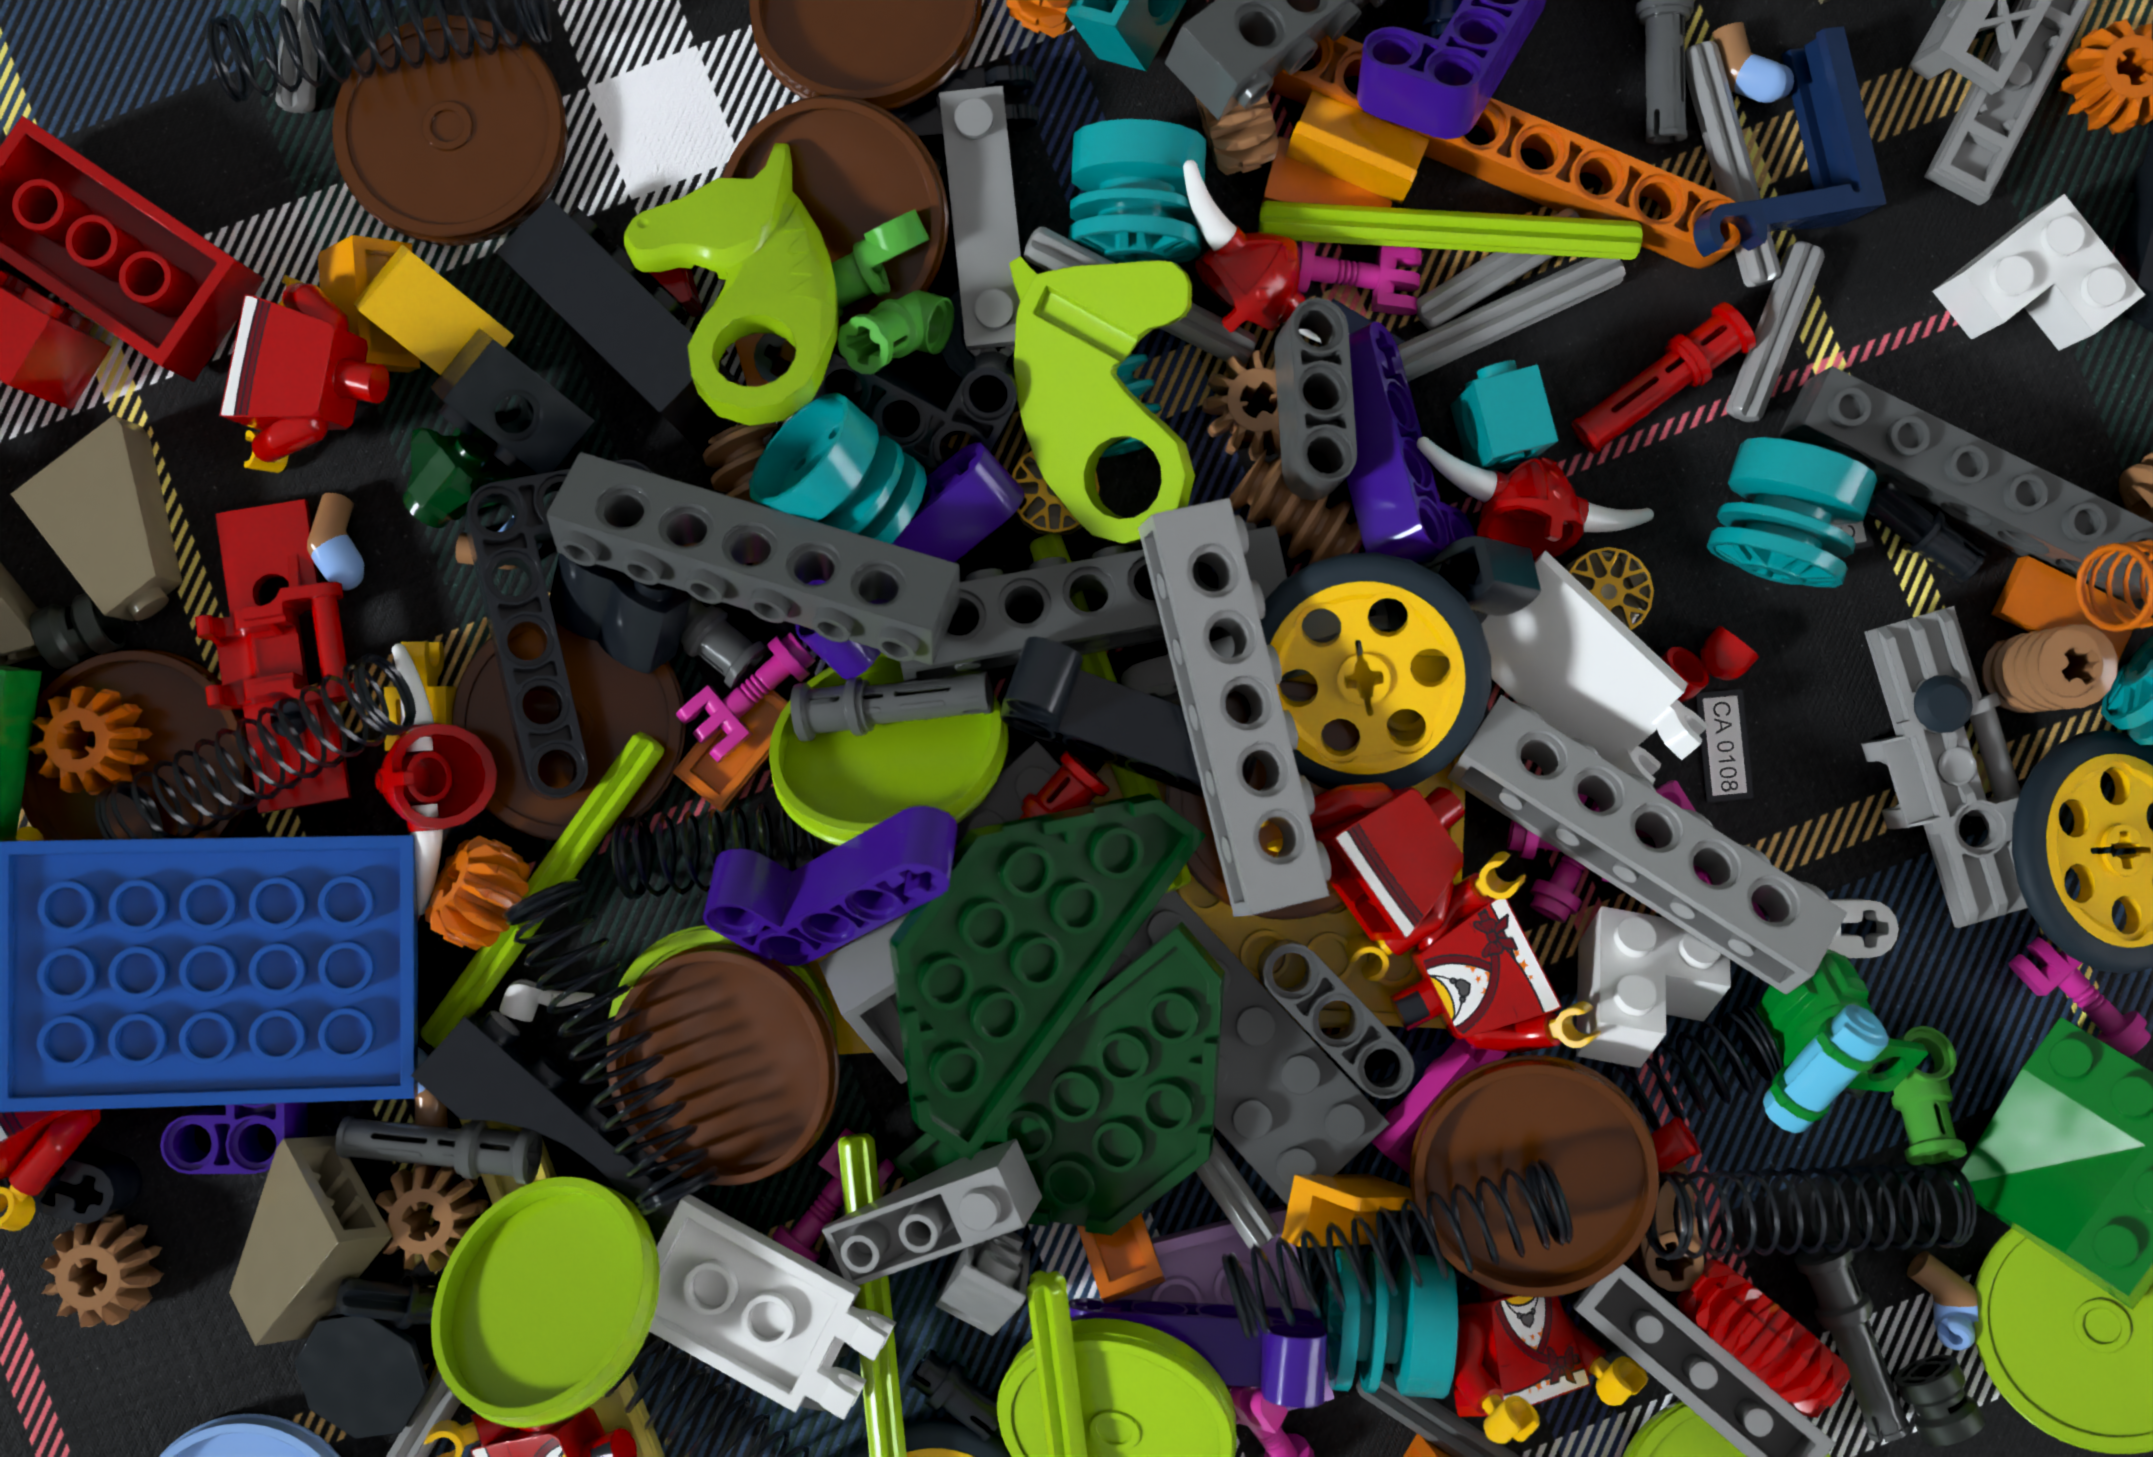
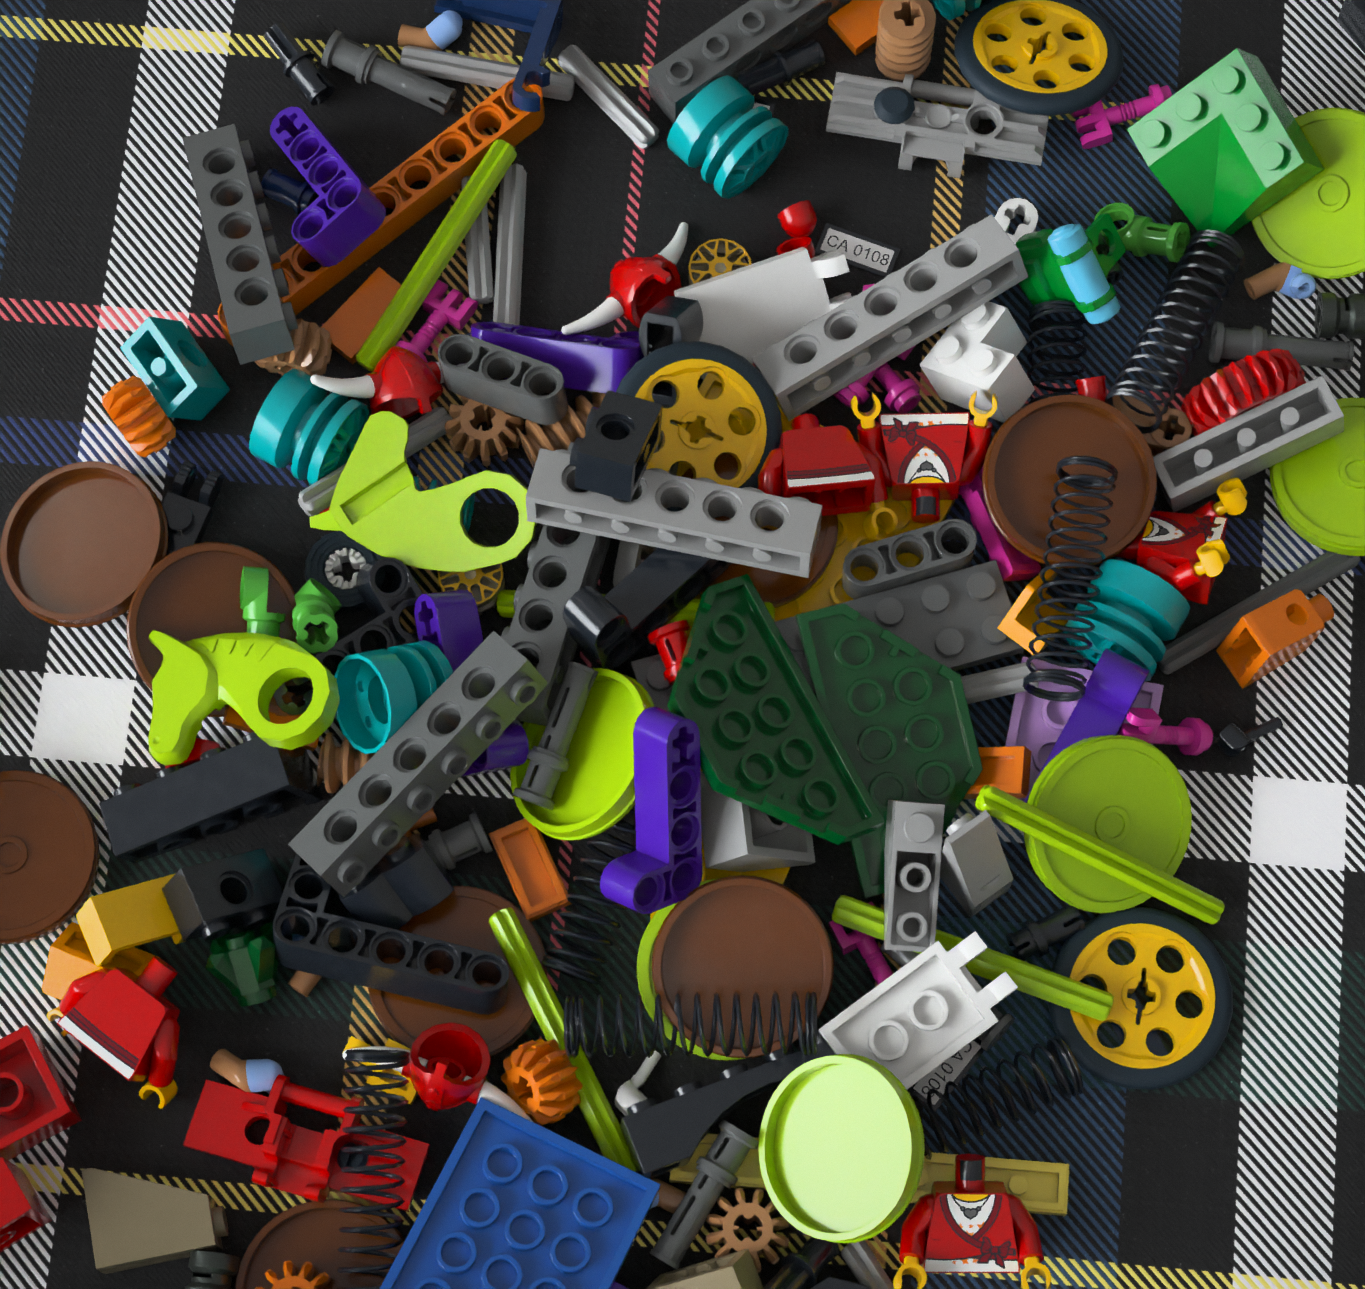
camera: 60 degrees left, 15 degrees down
(725, 713) = (491, 800): dark pink hinge -> none
(982, 213) = (269, 533): light grey plate -> none
(1243, 613) = (617, 445): none -> black brick
(1357, 147) = (353, 285): light orange panel -> none
(1503, 417) = (574, 275): teal brick -> none
(1686, 362) = (599, 156): red pin -> none

